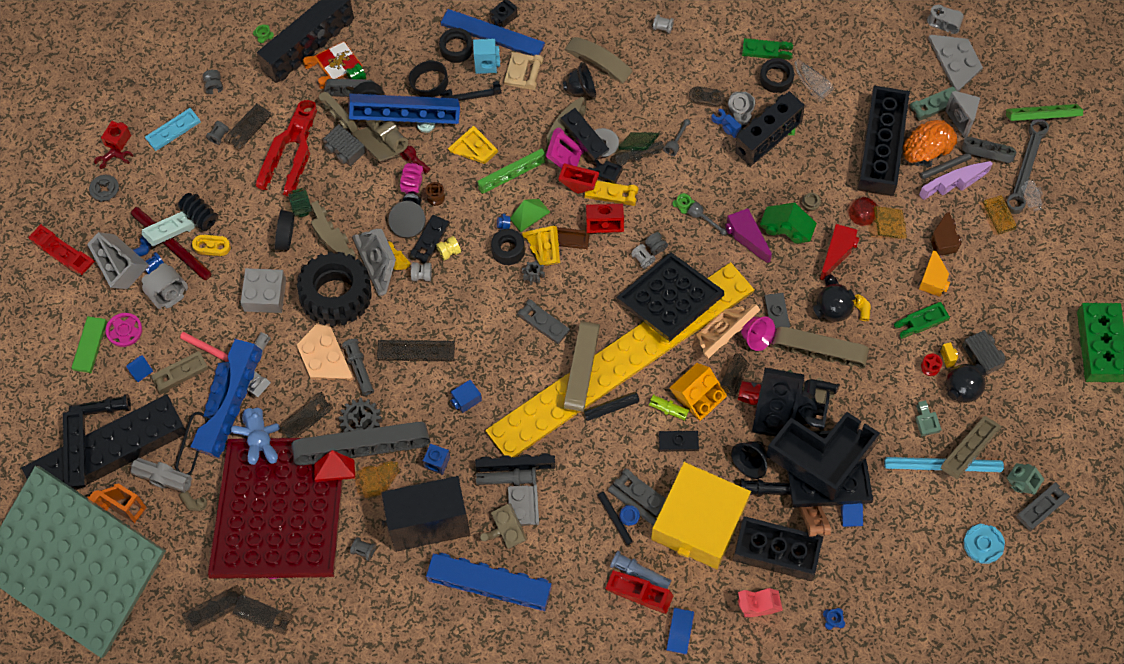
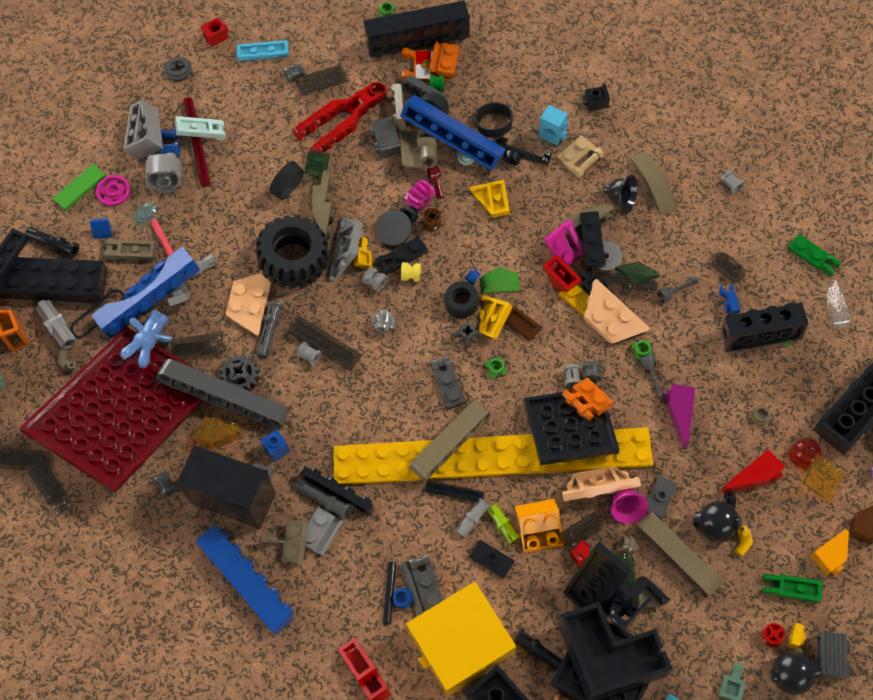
camera: 35 degrees right, 0 degrees up
(60, 251) = (110, 99): red slope -> none
(110, 154) = (202, 44): dark red arm -> none
(170, 332) = (145, 213): none -> clear light blue plate
(198, 211) = (233, 127): black piece -> none
(212, 80) = (319, 27): dark grey wheel -> none
(212, 244) = (226, 161): yellow plate -> none
(263, 290) = (238, 221): light grey brick -> none
(334, 467) = (186, 401): red slope -> none
(347, 49) = (444, 59): none -> orange plate
(408, 367) = (308, 353): none -> light grey bush
(454, 303) = (383, 321): none -> light grey gear
(456, 57) = (534, 92): black tyre -> none
(465, 396) = (336, 407): blue brick -> none
(467, 103) = (512, 157): none -> black tile
(485, 30) = (576, 110): blue tile -> none
(511, 171) = (509, 236): bright green tile -> none
(575, 281) = (495, 362): none -> bright green plate
(604, 218) = (561, 322): red brick -> none
(631, 567) = (372, 645): sand blue pin -> none
(641, 189) = (611, 316): none -> light nougat wing
(641, 417) = (472, 517): none -> light grey pin
(672, 263) = (591, 395): none -> orange plate
(741, 103) = (753, 289): light grey hair -> none
(750, 458) = (543, 615): black hat -> none
(777, 362) = (627, 545): none -> dark tan plate
(780, 86) = (801, 295): black tyre -> none
(788, 220) = (725, 421): green brick -> none

